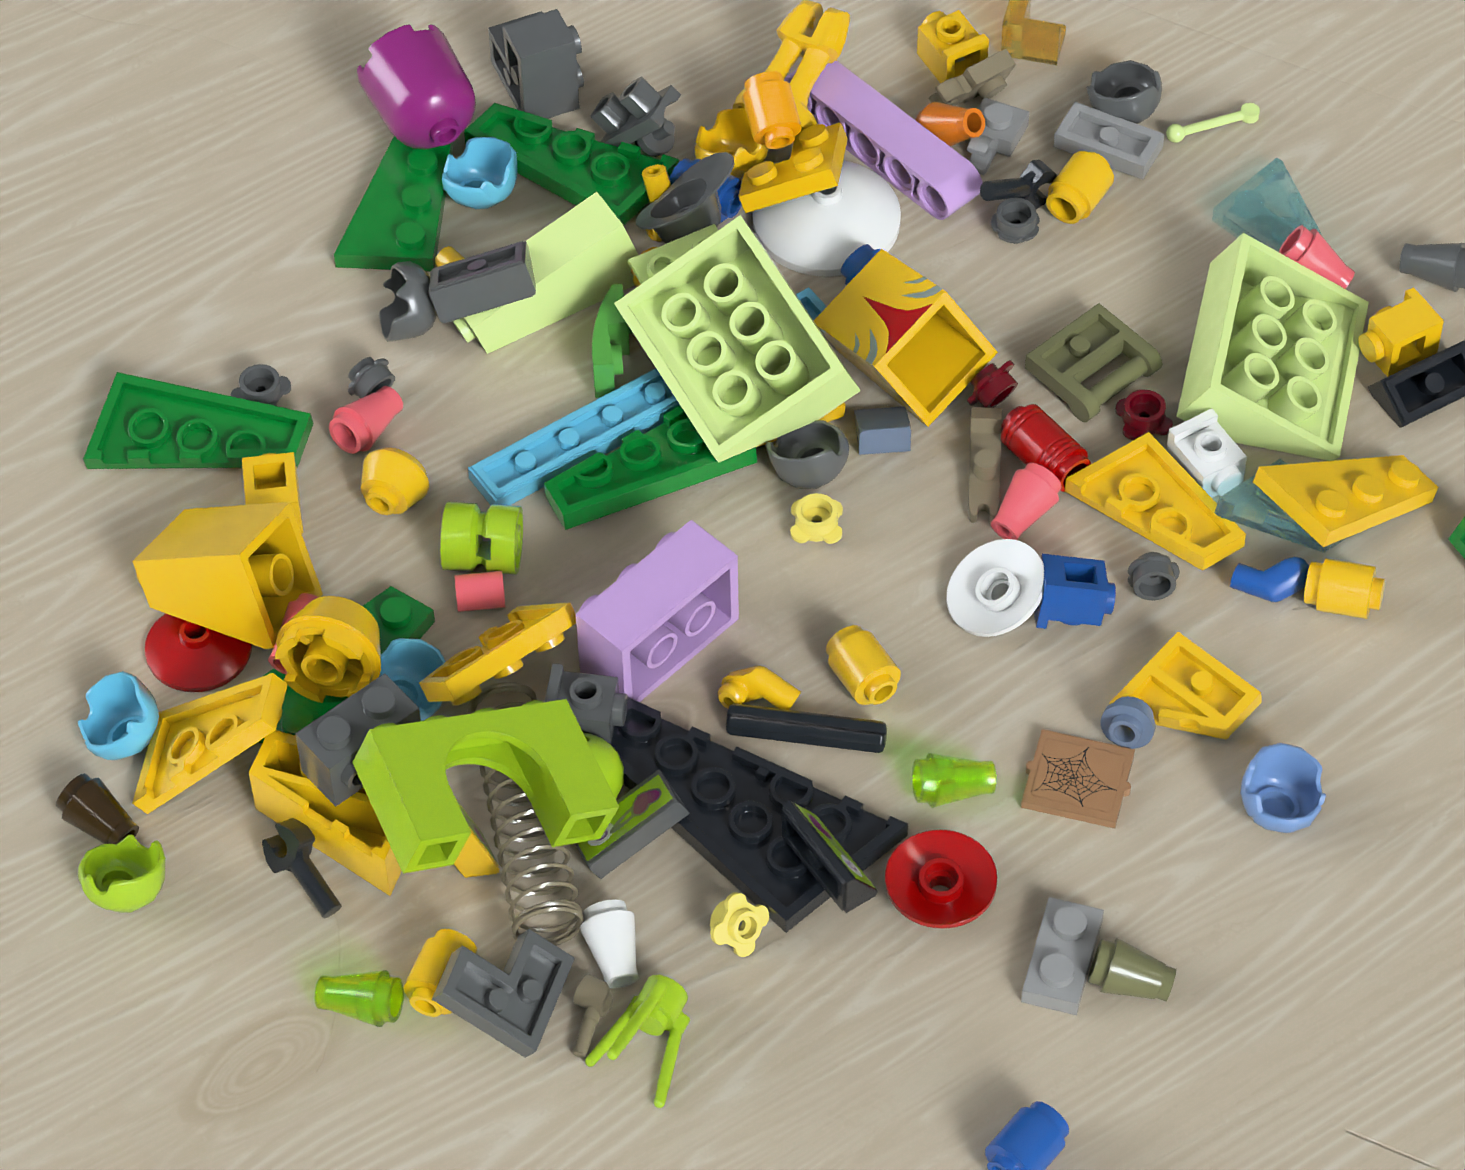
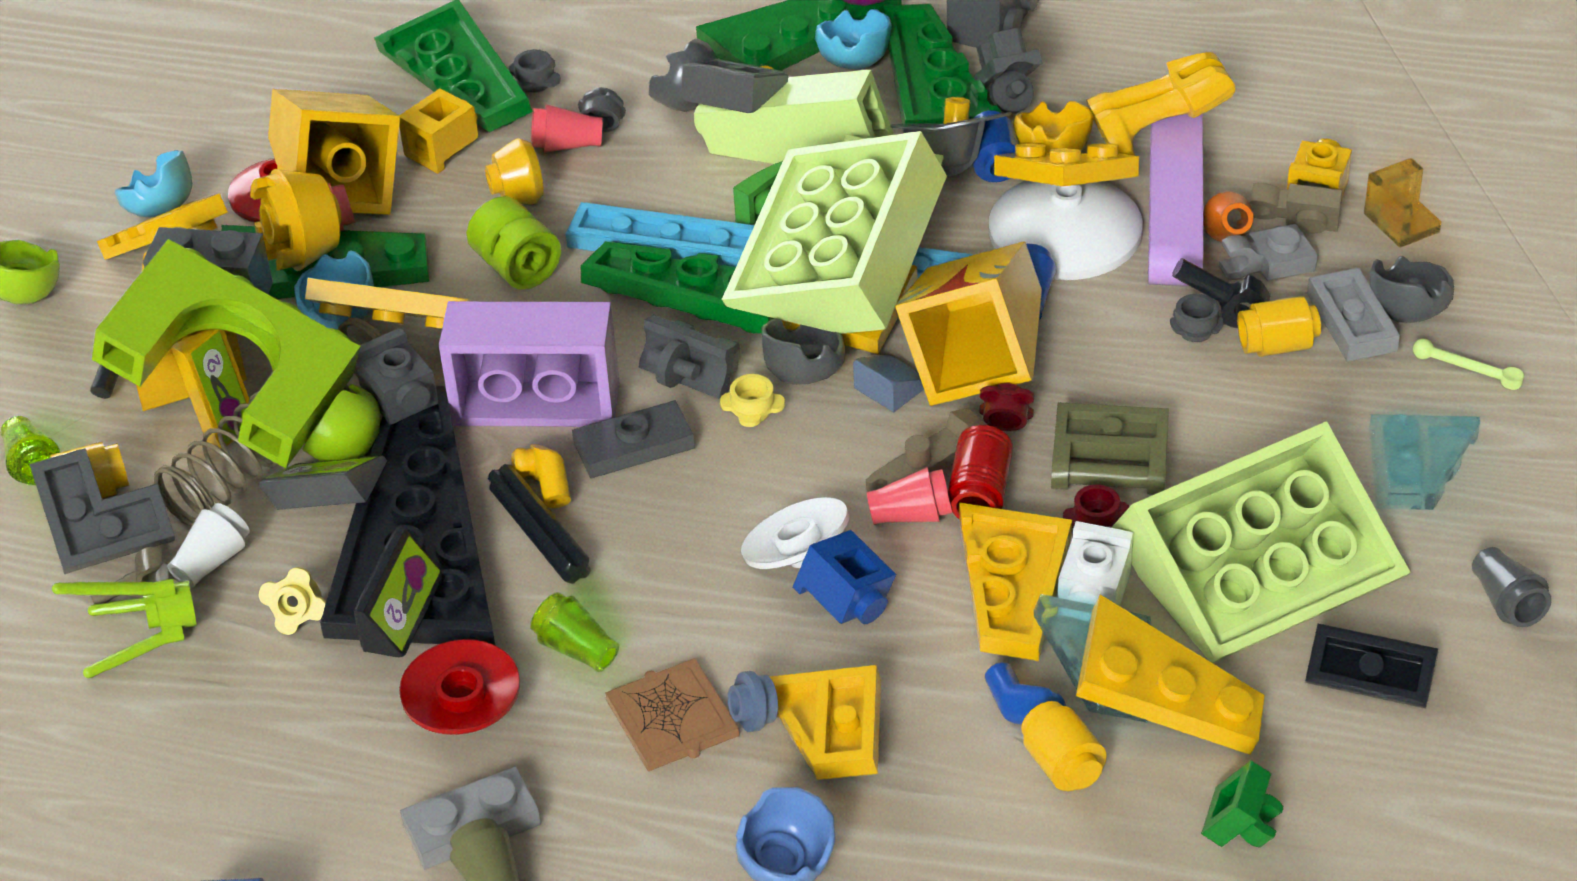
camera: 50 degrees right, 10 degrees down
(95, 810) = (69, 225): dark brown cone -> none
(479, 591) = (471, 277): coral hinge -> none
(741, 520) = (688, 357): none -> dark grey hips
(771, 110) = (1081, 105): light orange brick -> none
(775, 615) = (633, 439): none -> dark grey plate
(862, 665) = (629, 510): yellow brick -> none
(1153, 576) = (930, 621): dark grey plate -> none
(1314, 253) = (1395, 500): coral cone -> none
(1402, 334) = (1392, 604): yellow brick -> none

